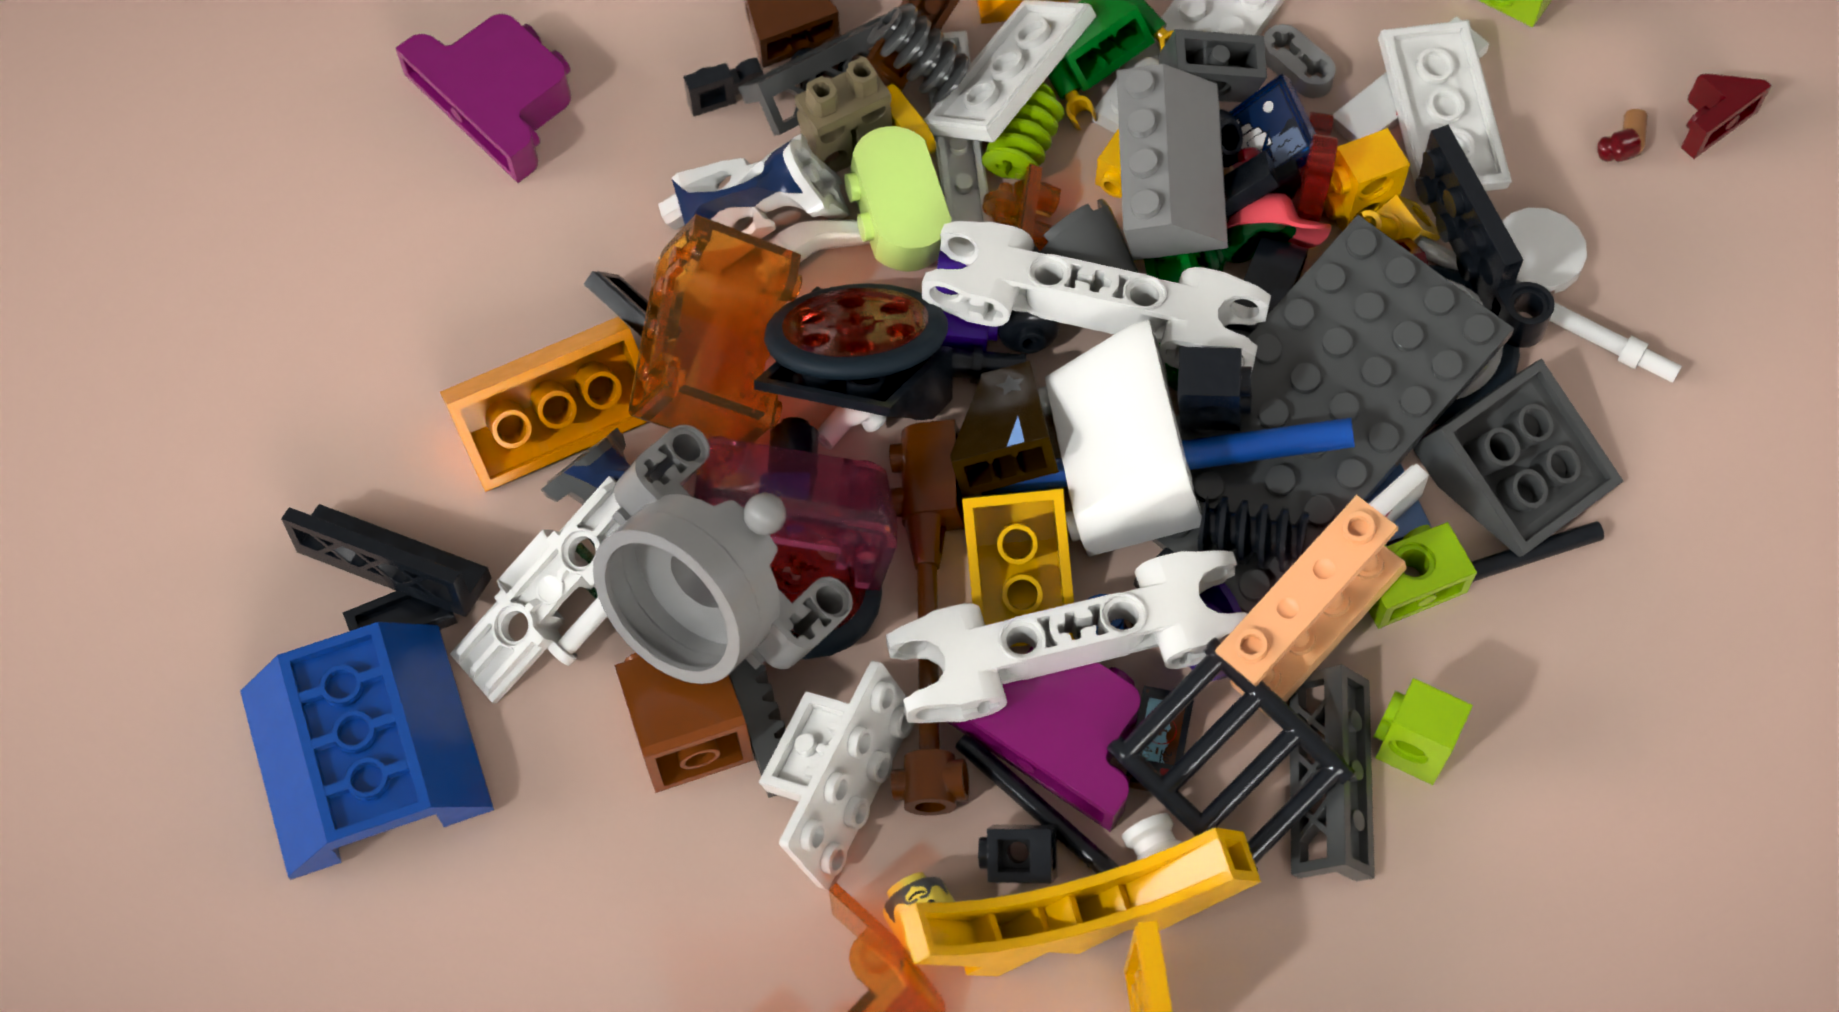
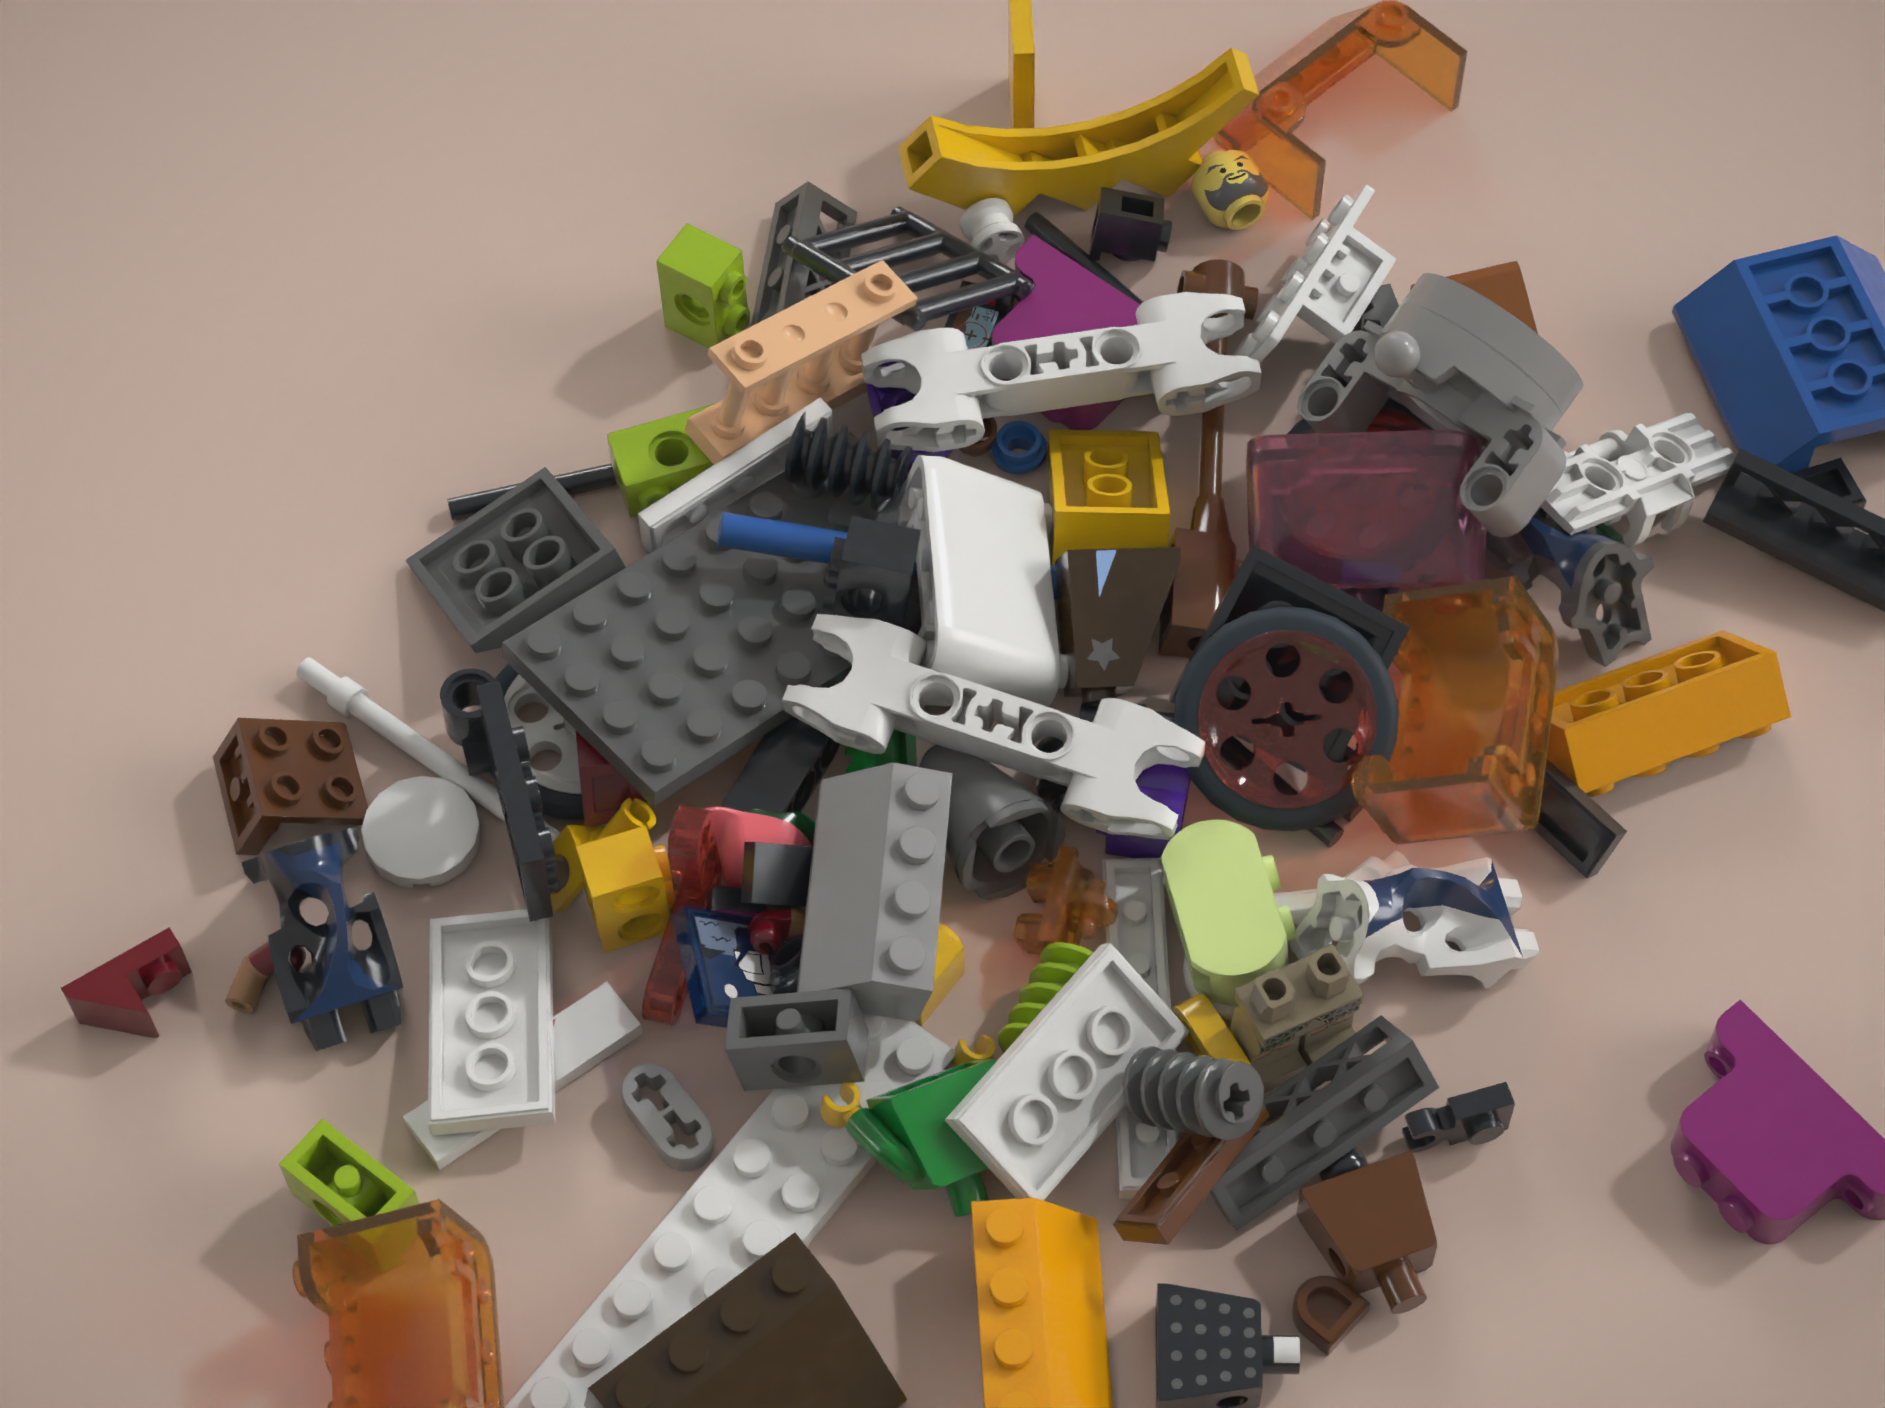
camera: 175 degrees left, 5 degrees down
(1587, 124) = (338, 970): none -> black hips
(1651, 274) = (286, 775): none -> reddish brown bracket

